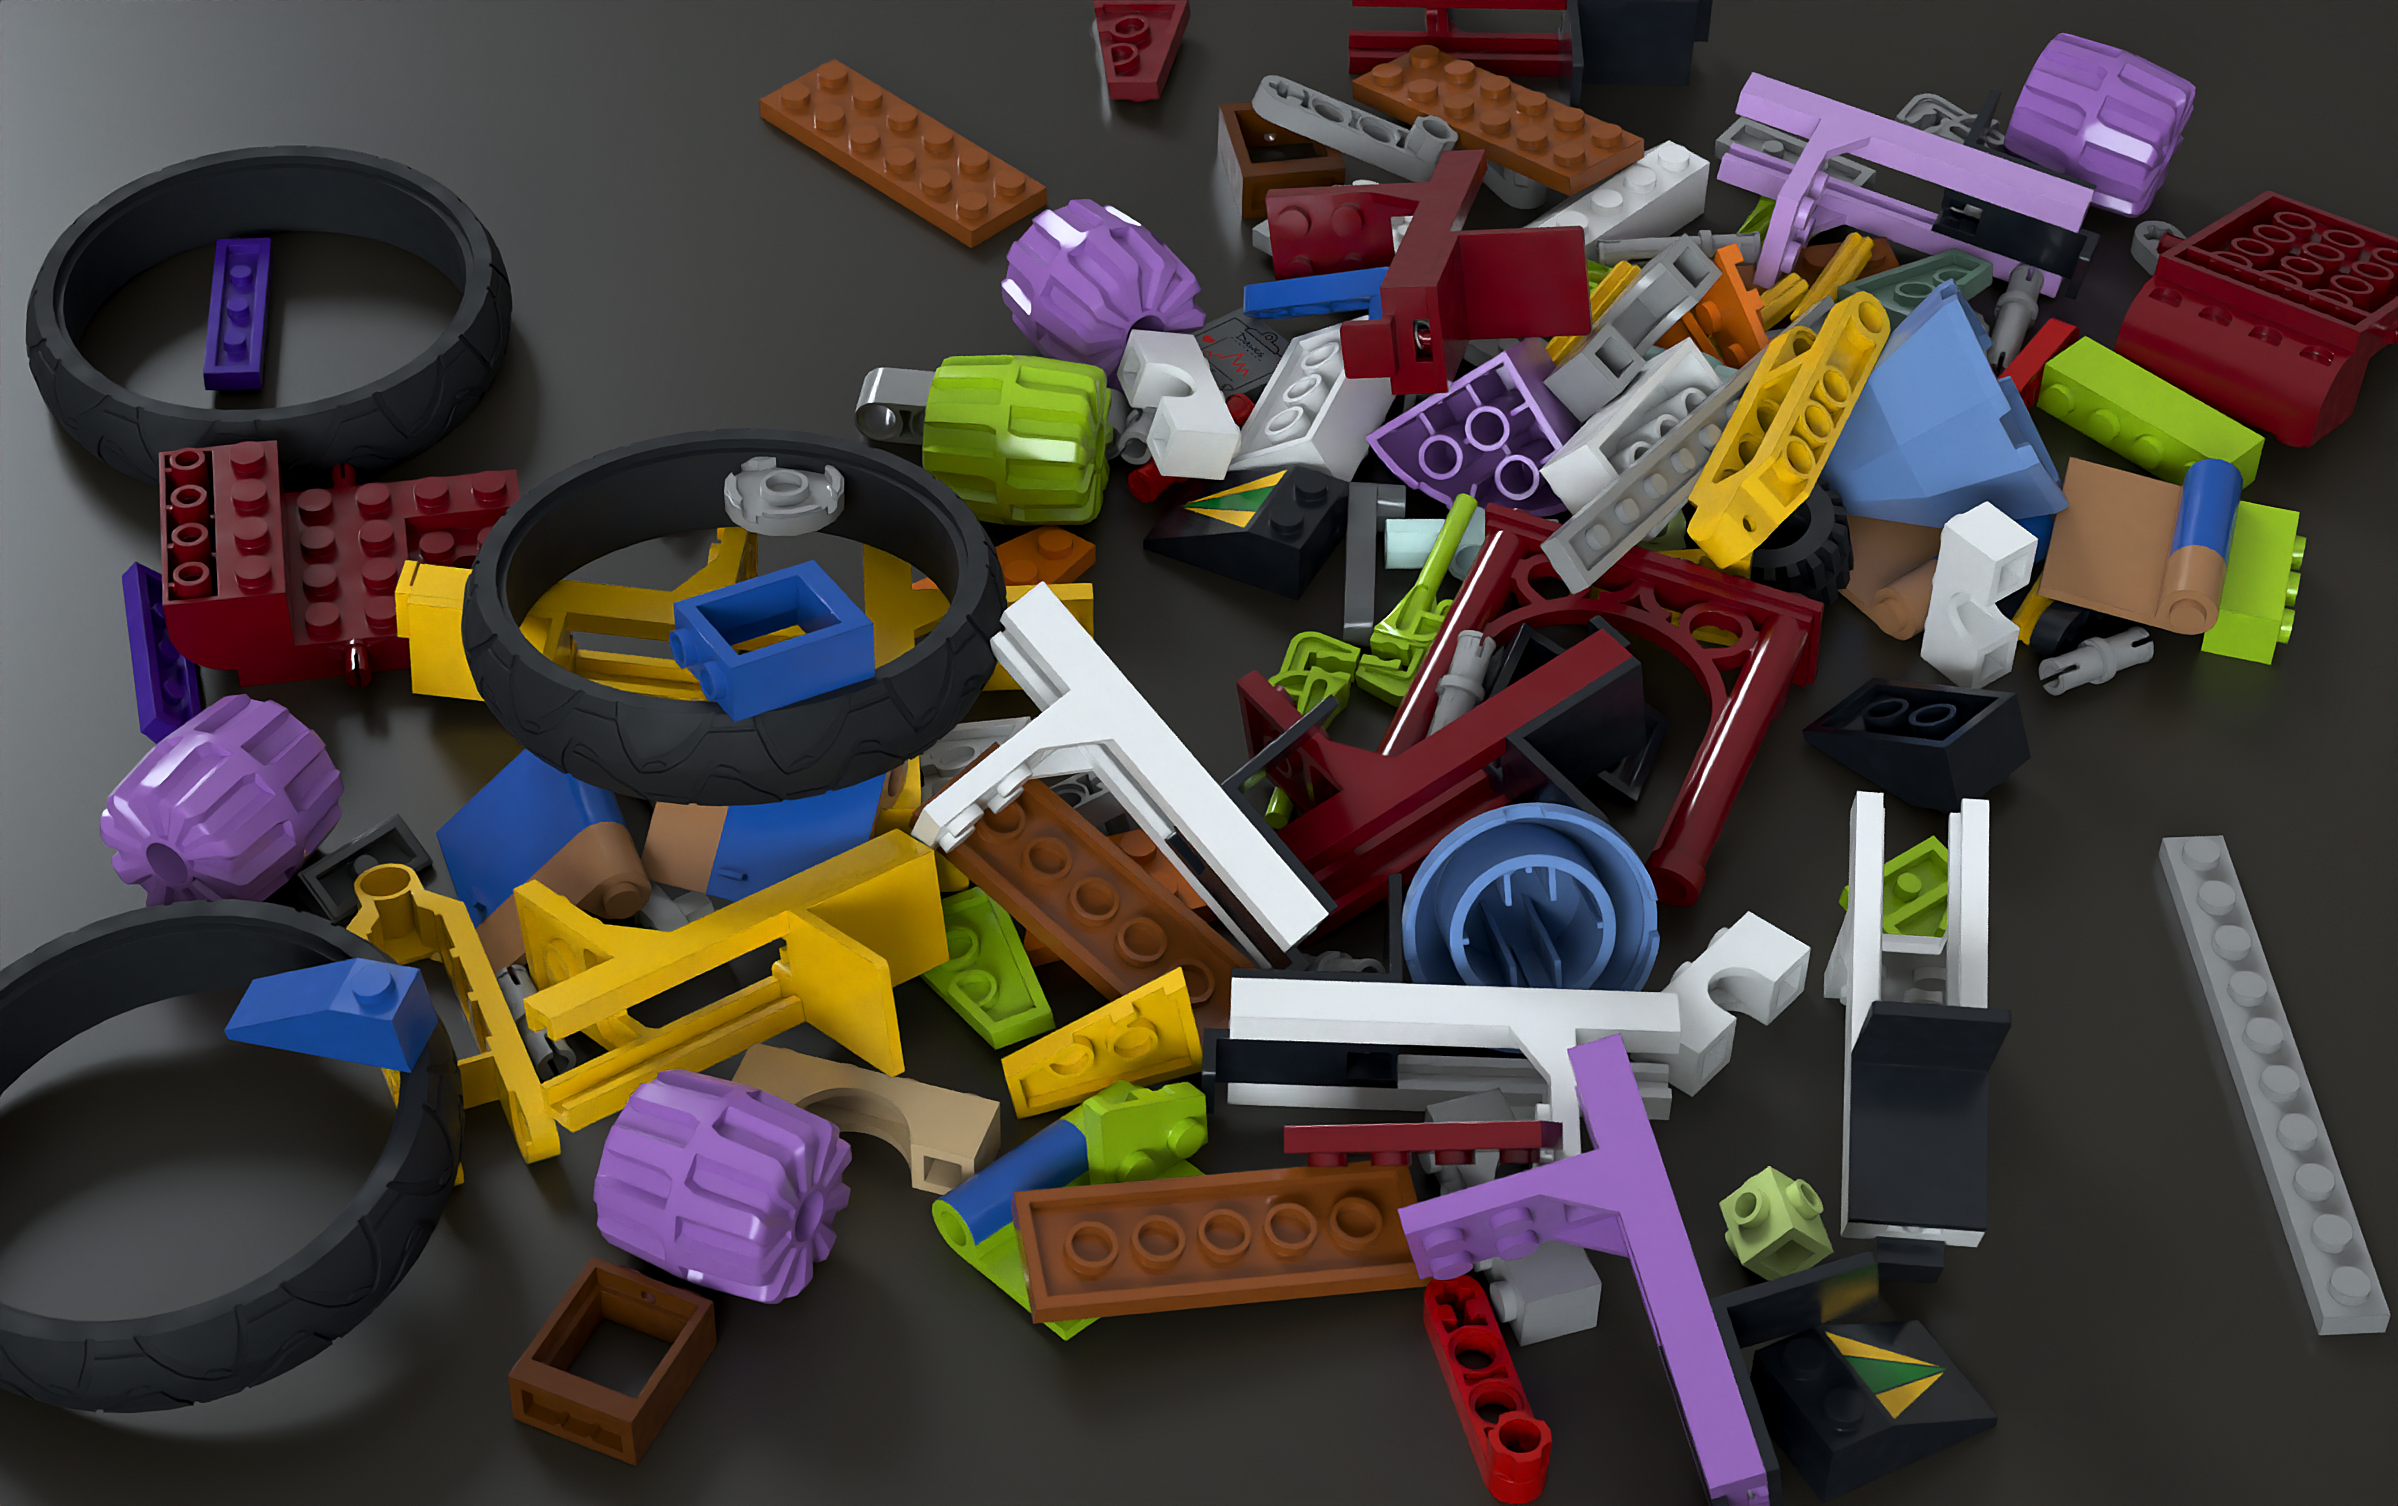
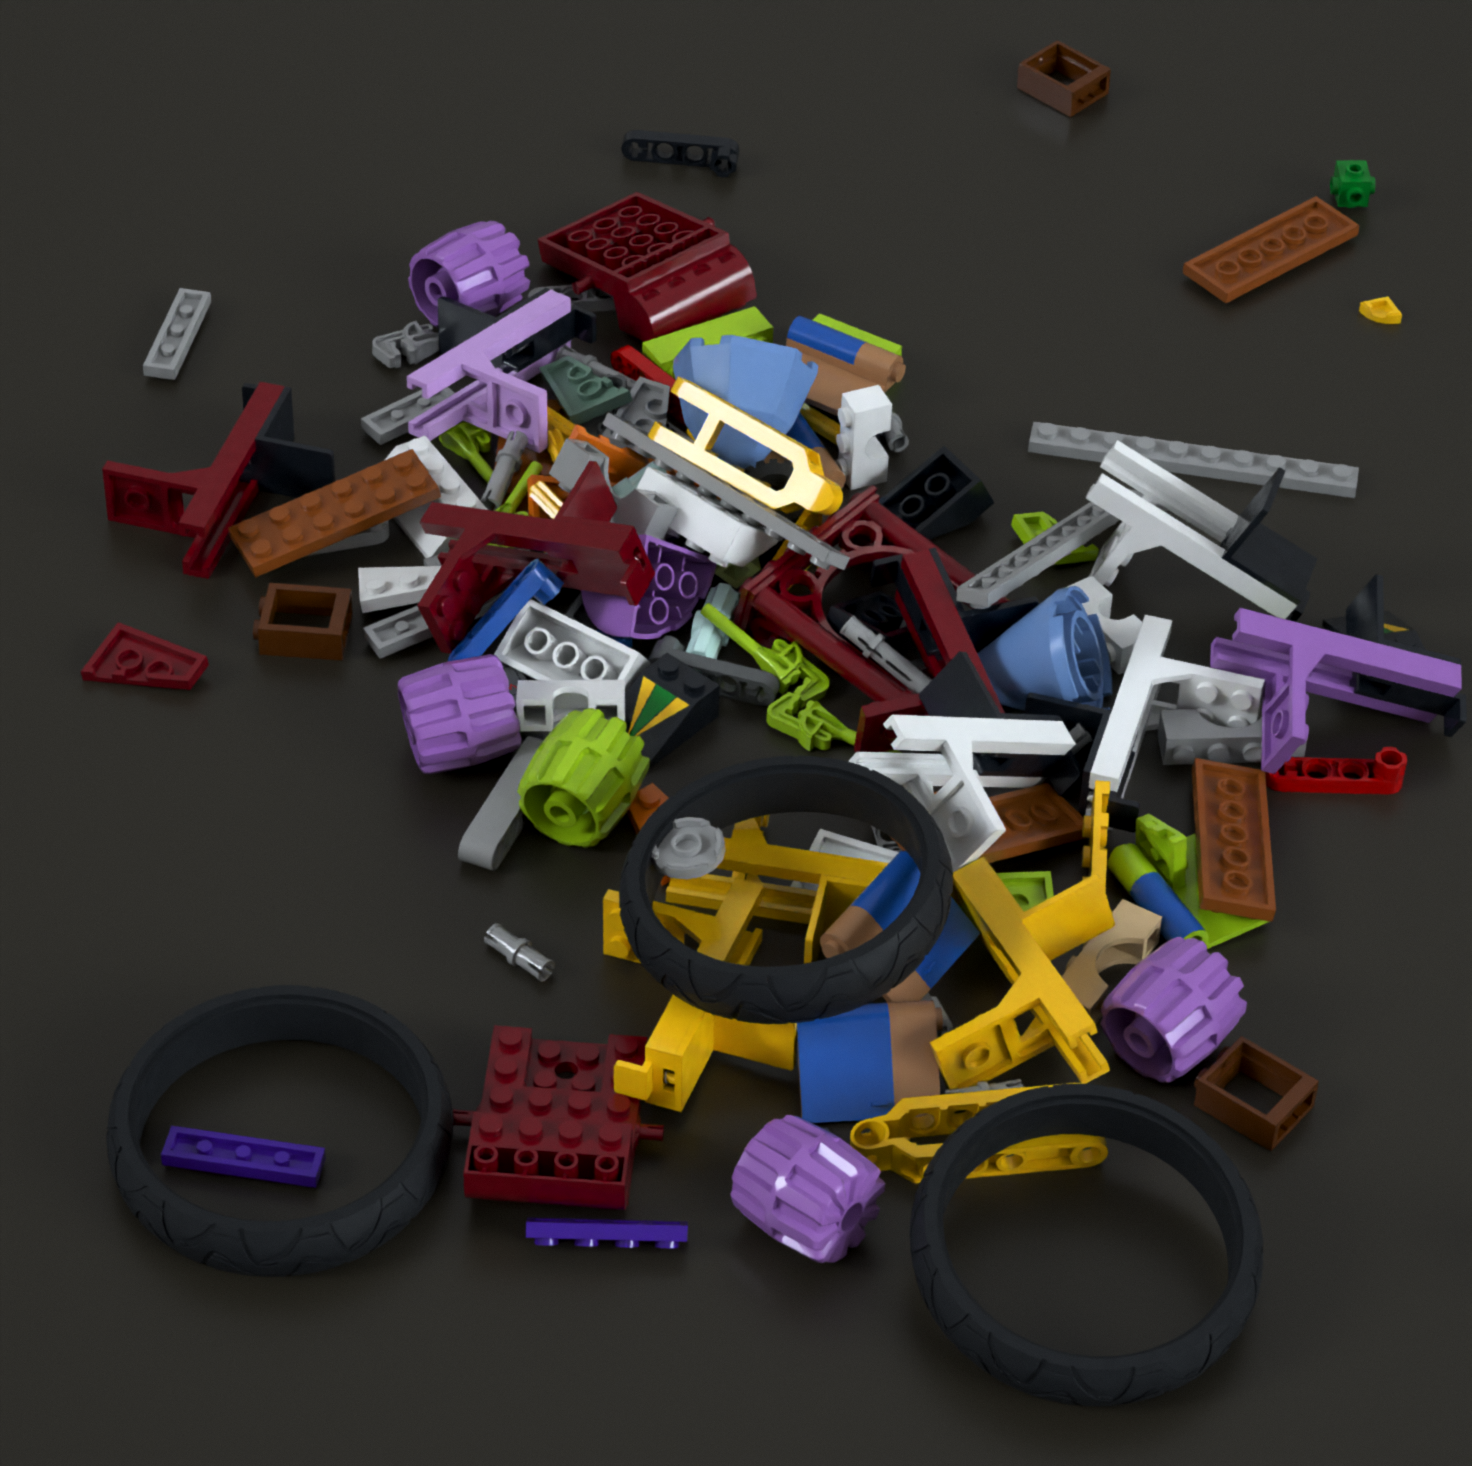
camera: 75 degrees left, 0 degrees up
(340, 1012) = (1066, 1113): blue slope -> none
(826, 658) = (888, 812): blue window -> none
(903, 153) = (201, 798): dark orange plate -> none
(1353, 131) = (325, 571): light grey beam -> none
(1450, 1142) = (1213, 735): dark red wing -> none
(1800, 850) = (1035, 556): none -> light grey plate

